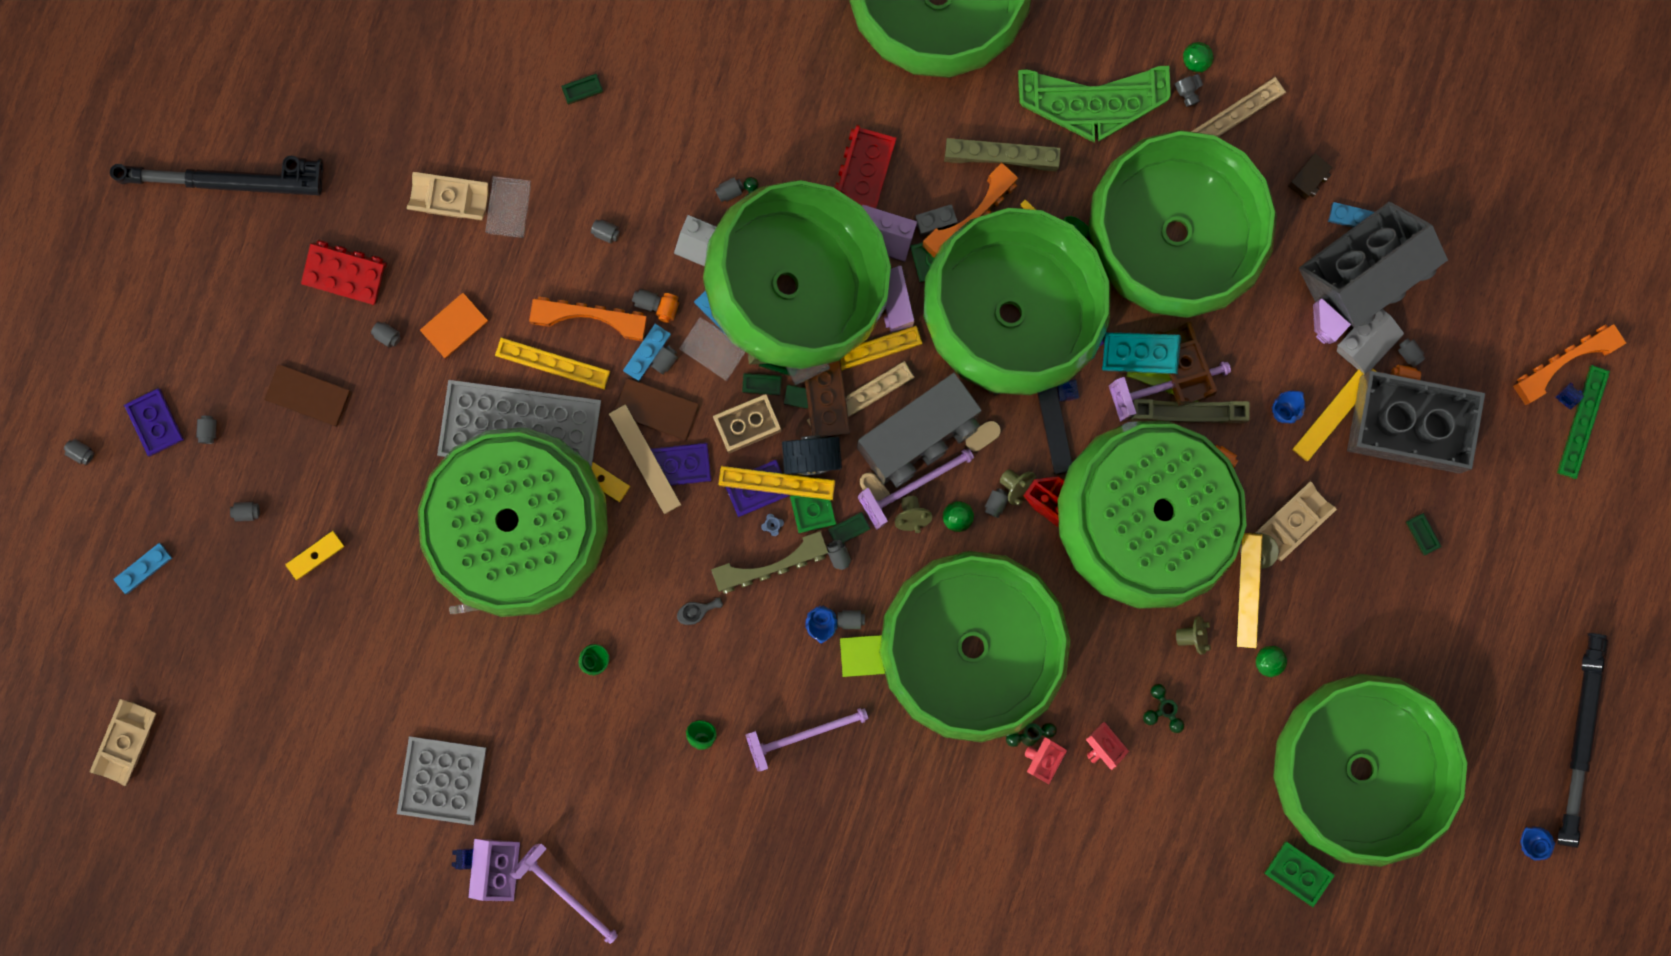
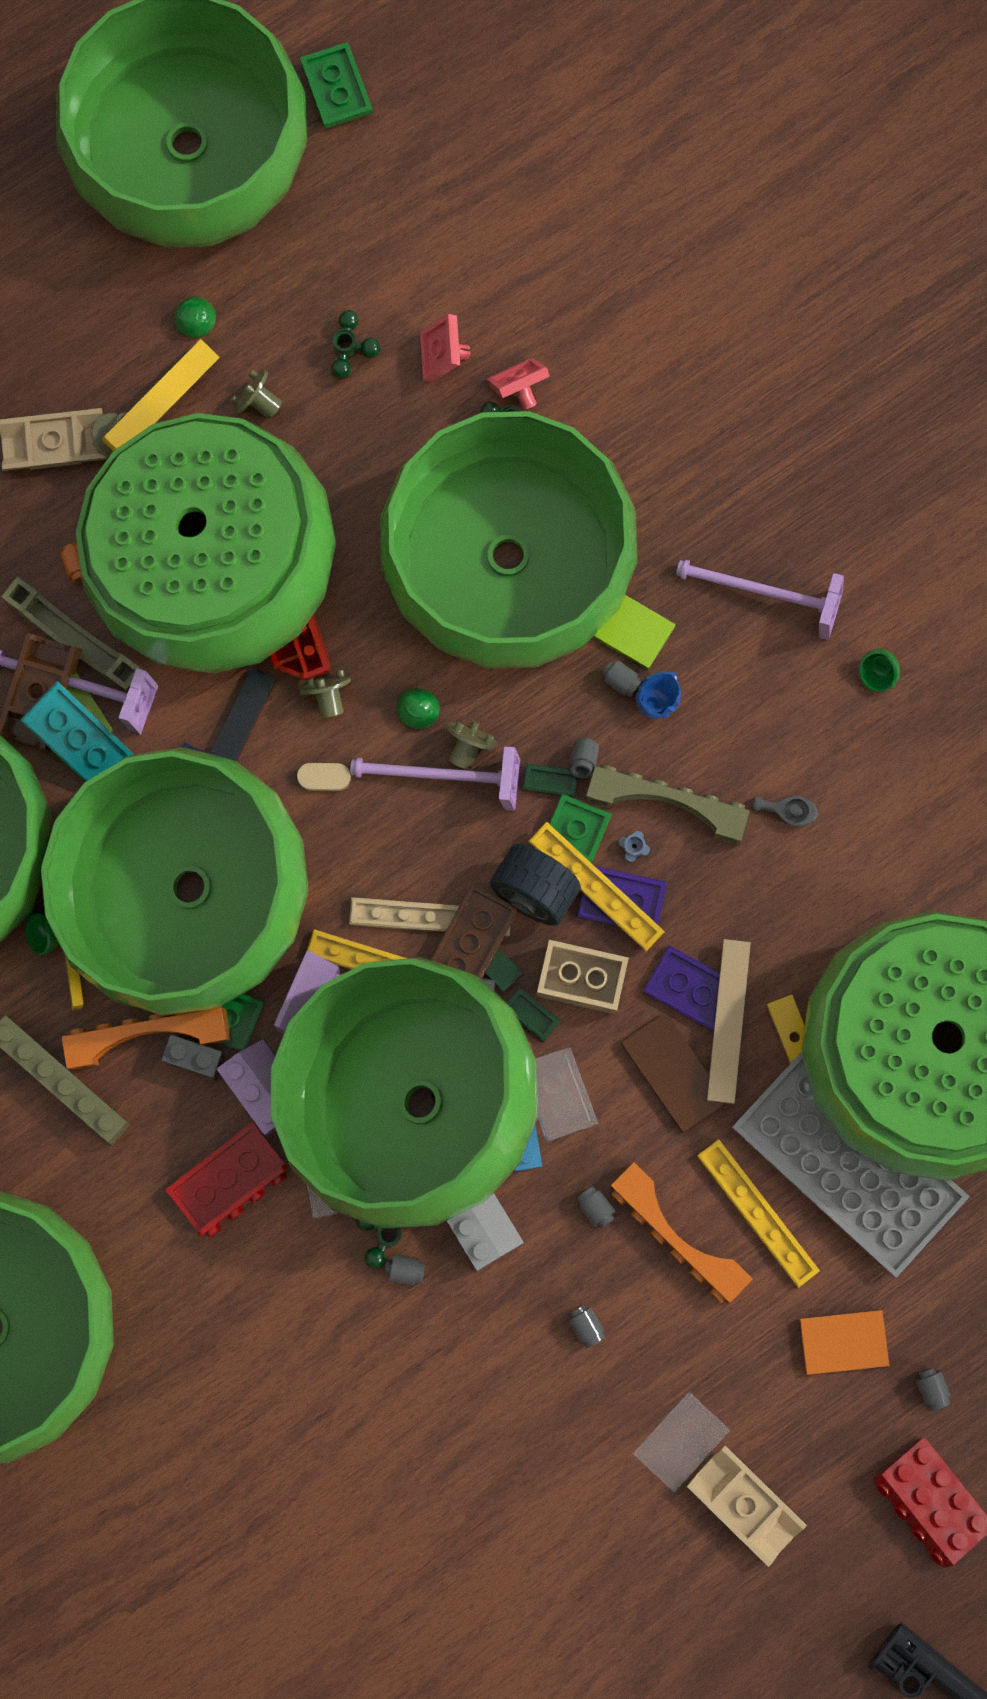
camera: 140 degrees left, 5 degrees down
(582, 89) = (491, 1525): dark green tile -> none
(593, 659) = (945, 836): green piece -> none
(646, 352) = (638, 1146): dark azure plate -> none
(664, 360) = (624, 1122): dark grey brick -> none
(667, 307) = (577, 1180): orange brick -> none
(876, 487) = (488, 806): tan tile -> none
(920, 431) = (393, 819): dark grey brick -> none
(996, 503) = (364, 690): dark grey brick -> none

